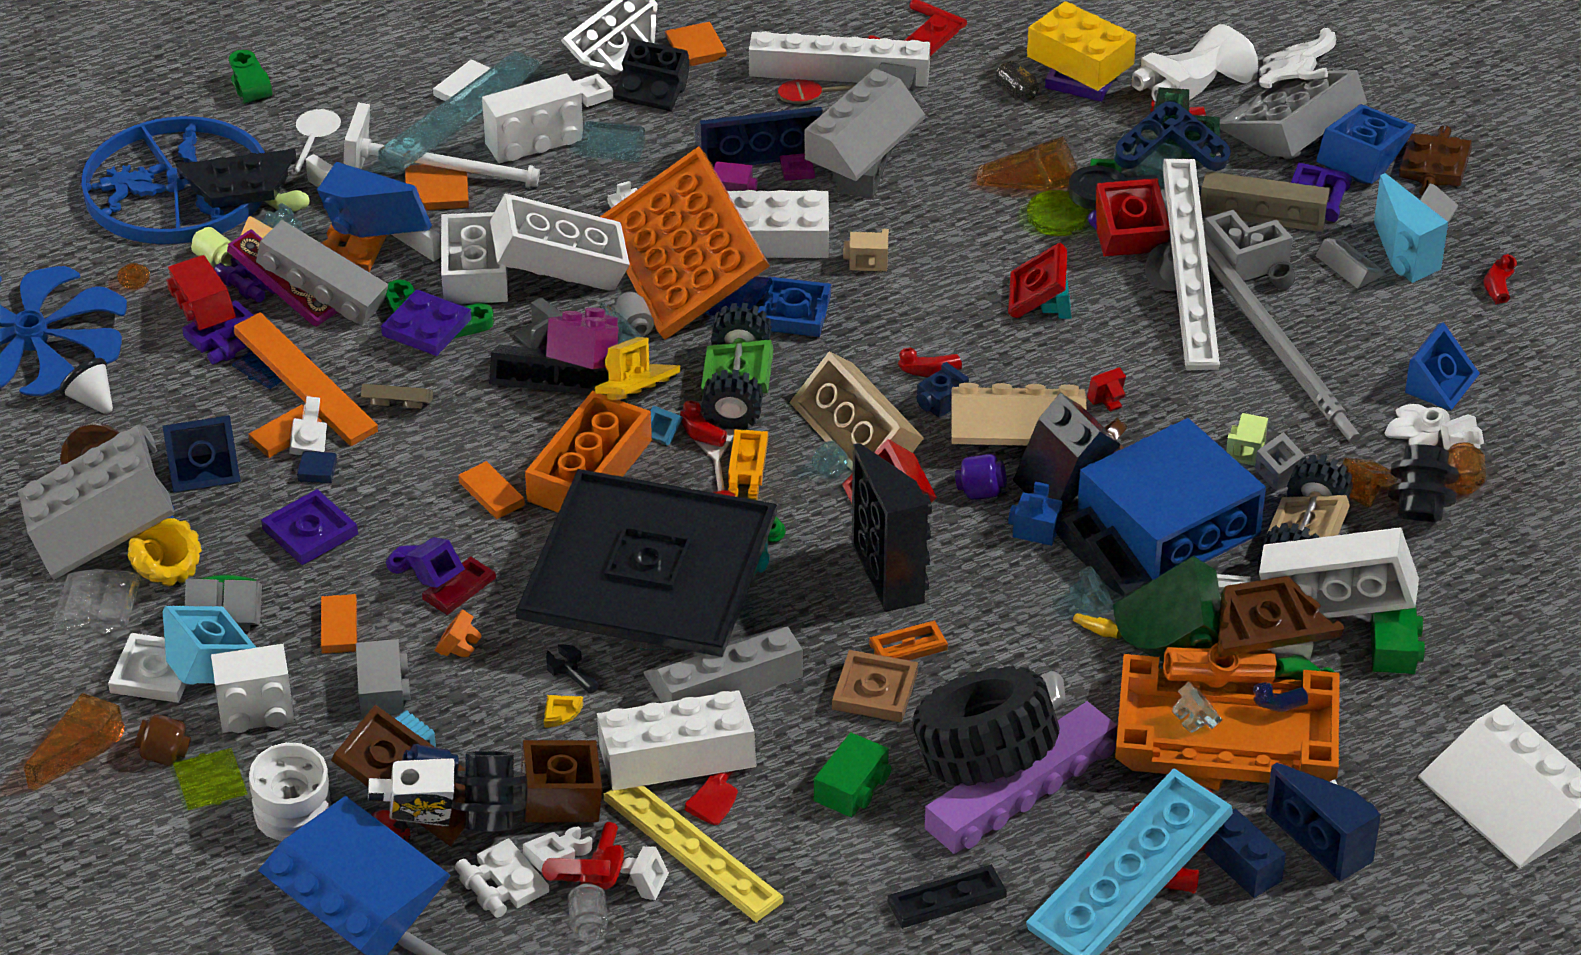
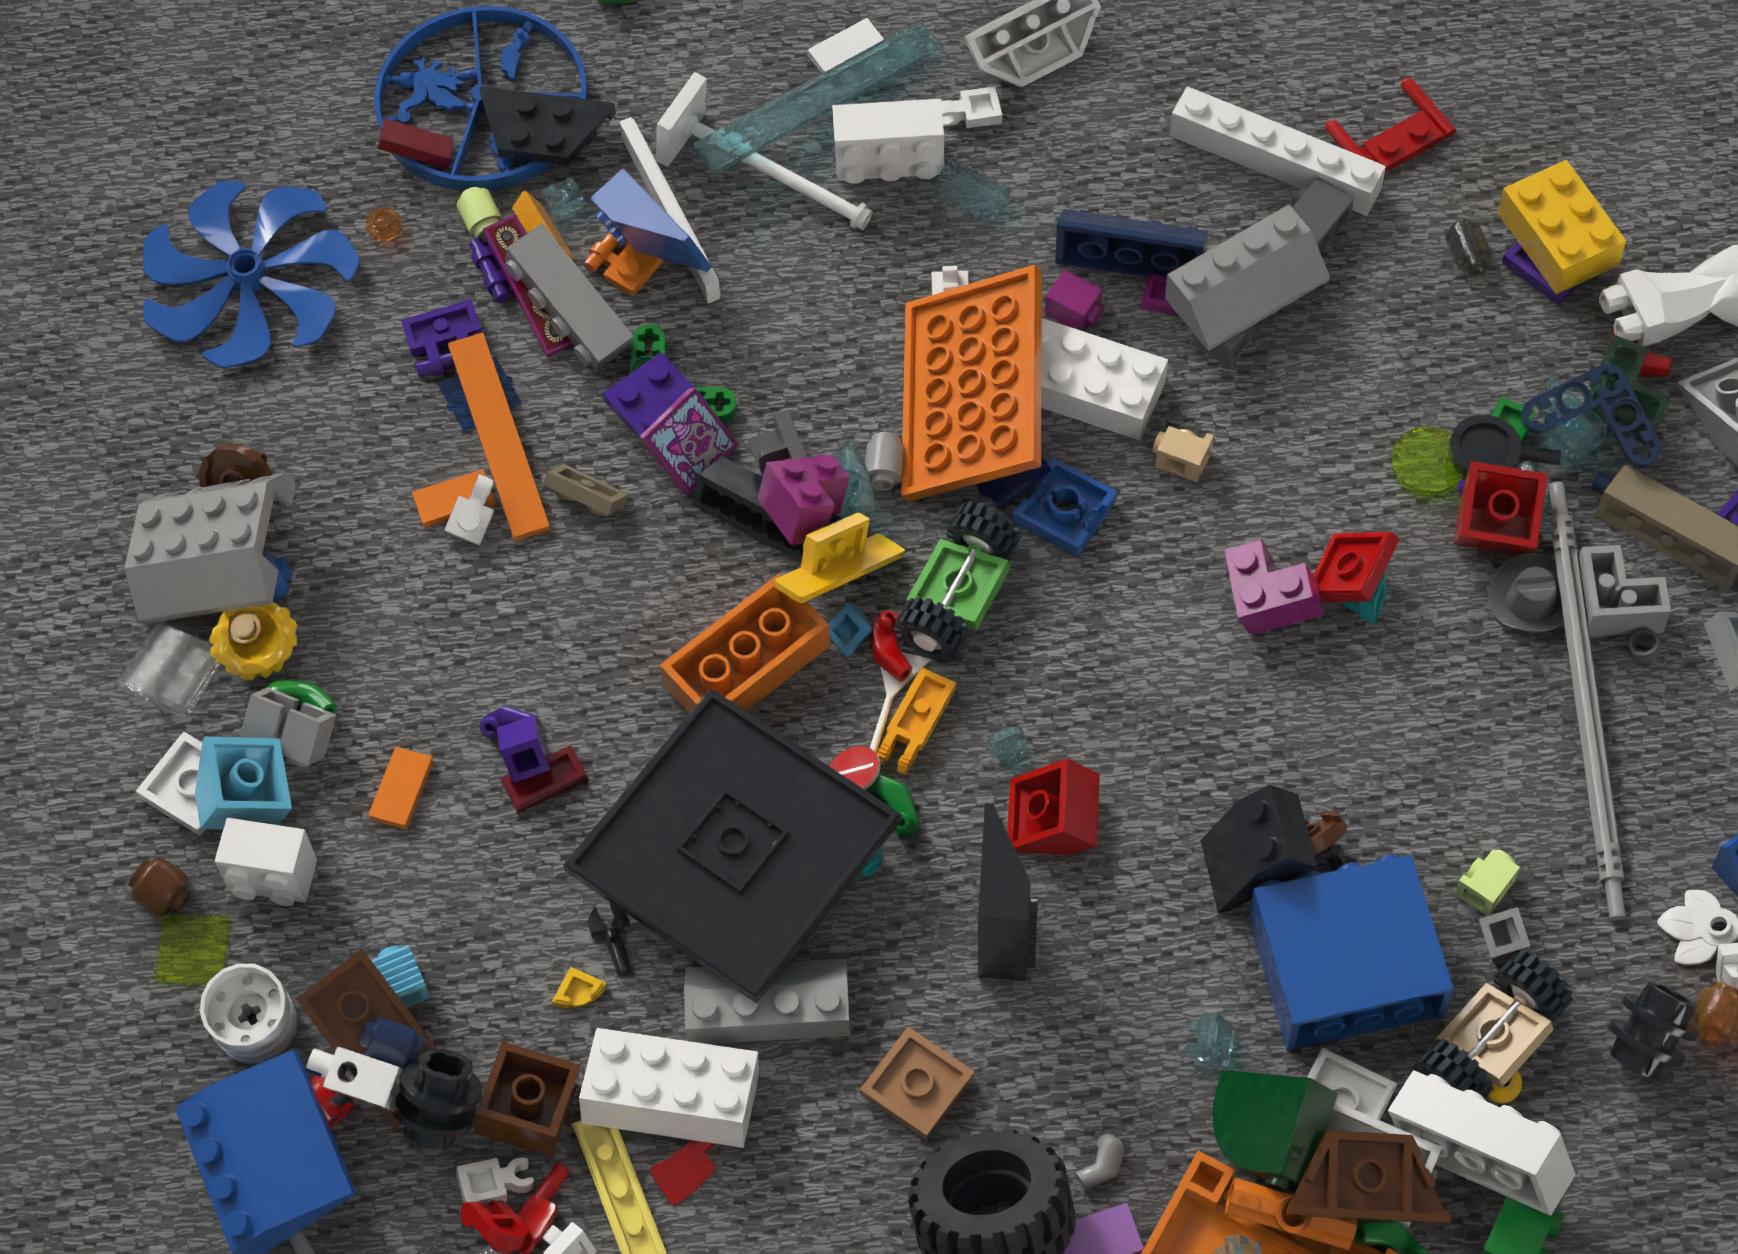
camera: 25 degrees right, 20 degrees up
(76, 739) = (78, 853): clear orange slope -> none
(89, 385) = (275, 373): white hat -> none
(136, 216) = (415, 143): none -> dark red tile
(200, 292) = (433, 282): red brick -> none
(201, 453) = (350, 505): dark blue slope -> none
(294, 199) = (589, 168): yellowish green arm -> none
(309, 527) = (422, 645): dark purple plate -> none
(315, 124) = (662, 59): white piece -> none
(317, 467) = (465, 561): dark blue tile -> none
(380, 676) = (408, 884): light grey brick -> none
(439, 186) = (751, 200): orange tile -> none
(457, 634) = (507, 851): orange tile -> none
(468, 338) = (688, 440): none -> tile
(470, 260) = (742, 324): white brick -> none
(491, 490) = (632, 657): orange tile -> none
(509, 870) = (436, 1192): white plate -> none
(559, 242) = (833, 344): white brick -> none
(652, 75) = (1053, 111): black brick -> none
(699, 41) = (1128, 70): orange piece -> none
(805, 91) = (1224, 179): red piece -> none
(850, 409) = (1062, 691): tan slope -> none
(852, 775) = (836, 1200): green brick -> none
(910, 648) = (981, 1048): orange tile -> none
(925, 366) = (1178, 644): red arm -> none
(935, 391) = (1170, 701): dark blue brick -> none
(981, 476) = (1162, 830): dark purple head -> none
(984, 313) = (1267, 596): none -> brick
(1002, 413) = (1230, 759): tan slope -> none
(1035, 168) = (1428, 390): clear orange slope -> none
(1036, 516) = (1195, 912): blue brick -> none
(1100, 626) = (1200, 1085): yellow piece -> none
(1103, 551) = (1250, 989): black slope -> none
(1107, 389) = (1362, 751): red tile -> none
(1190, 265) = (1535, 606): white tile -> none
(1367, 479) = (1600, 987): clear orange slope -> none

